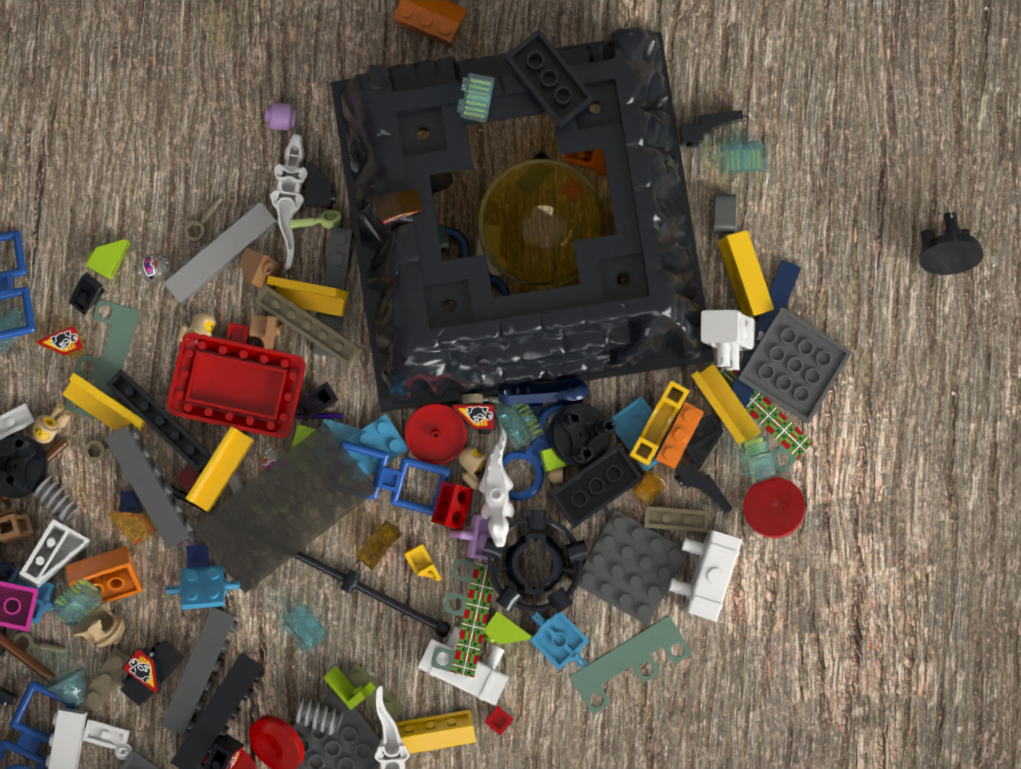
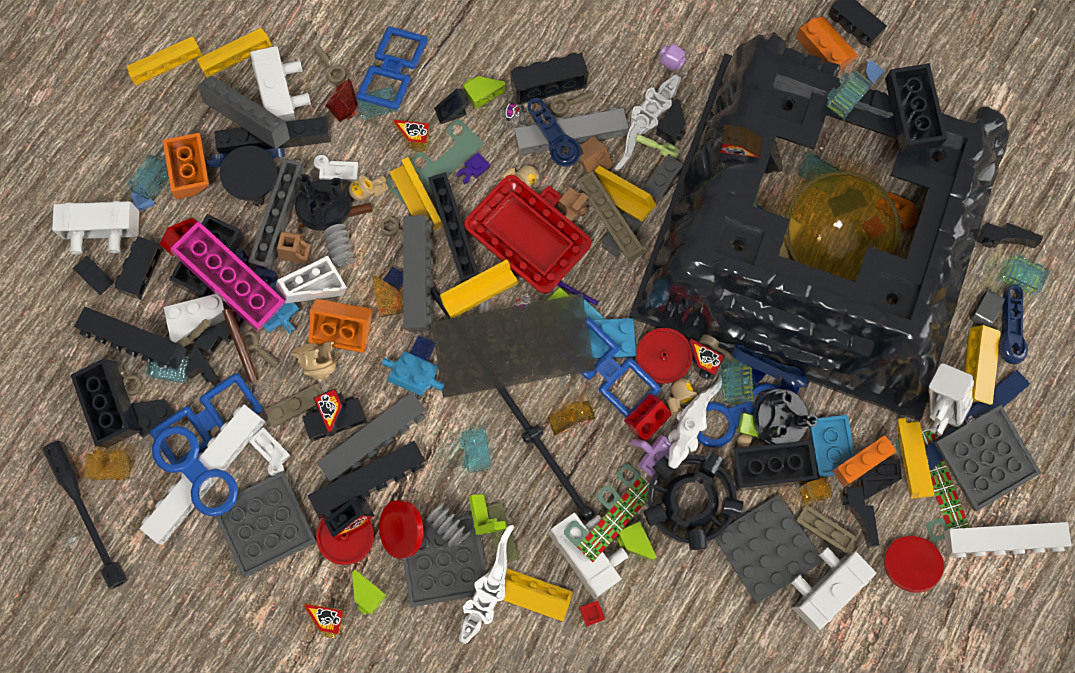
camera: 30 degrees right, 10 degrees down
(69, 687) = (264, 393): clear light blue hat -> none
(77, 603) = (308, 330): clear light blue brick -> none
(145, 341) = (474, 167): none -> dark purple plate
(167, 211) = (549, 78): none -> black brick
(188, 477) = (449, 283): dark red tile -> none
(209, 271) = (555, 136): none -> dark blue beam
(317, 401) = (584, 278): black slope -> none
(421, 562) = (598, 451): yellow slope -> none
(491, 20) = (873, 72): none -> medium blue tile
(491, 160) = (815, 167): none -> clear light blue brick
(559, 640) = (677, 575): dark azure plate -> none
(631, 653) = (726, 619): sand green piece -> none
(659, 423) = (853, 441): yellow arch -> none
(757, 460) = (920, 516): clear light blue brick -> none
(758, 220) = (1013, 327): none -> dark blue beam
(850, 434) = (1007, 538): none -> white brick

